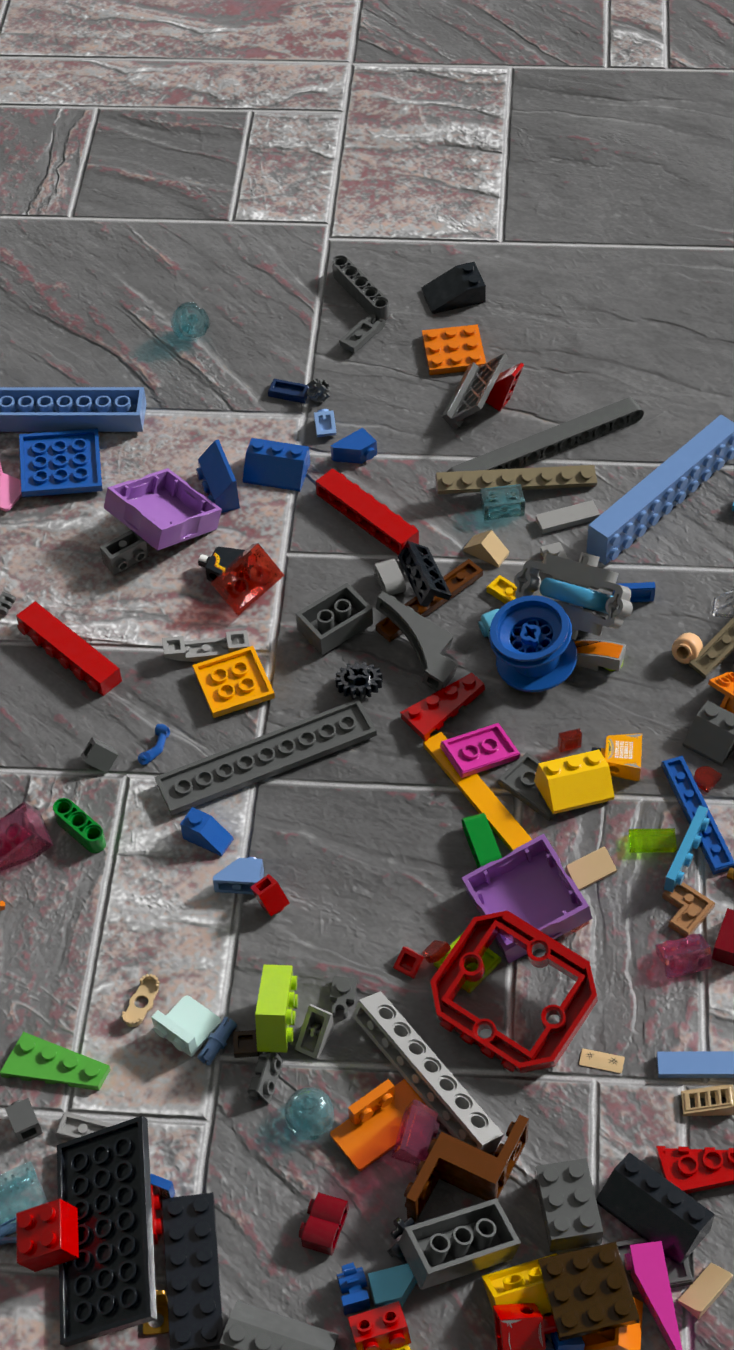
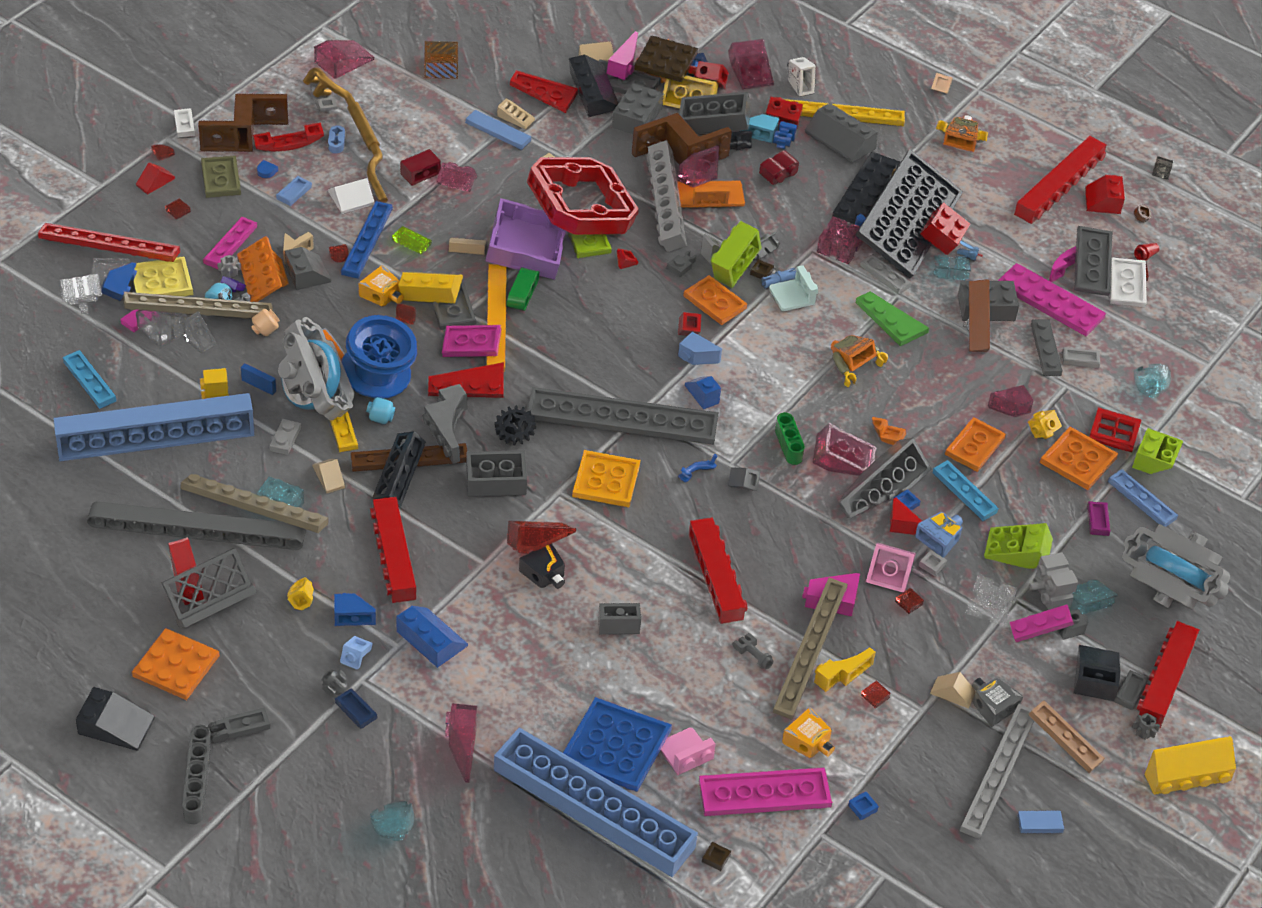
camera: 155 degrees left, 5 degrees down
(23, 1120) = (927, 295): dark grey brick -> none
(66, 971) = (854, 352): none -> torso
(148, 988) = (823, 319): tan piece -> none
(162, 509) = (564, 626): medium lavender tile -> none
(174, 1140) = (839, 240): none -> clear pink brick
(181, 394) = (461, 730): none -> clear pink slope
(205, 649) = (606, 516): light grey slope -> none
(218, 478) = (493, 639): blue slope -> none
(258, 949) = (715, 300): none -> orange plate
(309, 1113) = (751, 214): clear light blue cylinder -> none
(390, 577) = (423, 489): light grey beam -> none
(408, 438) = (301, 594): none -> yellow rock
(436, 951) = (606, 250): clear red tile -> none
(567, 516) = (241, 464): light grey tile -> none
(652, 549) = (214, 383): none -> yellow brick
(684, 857) = (401, 213): dark azure plate -> none
(693, 908) = (426, 197): medium nougat tile -> none

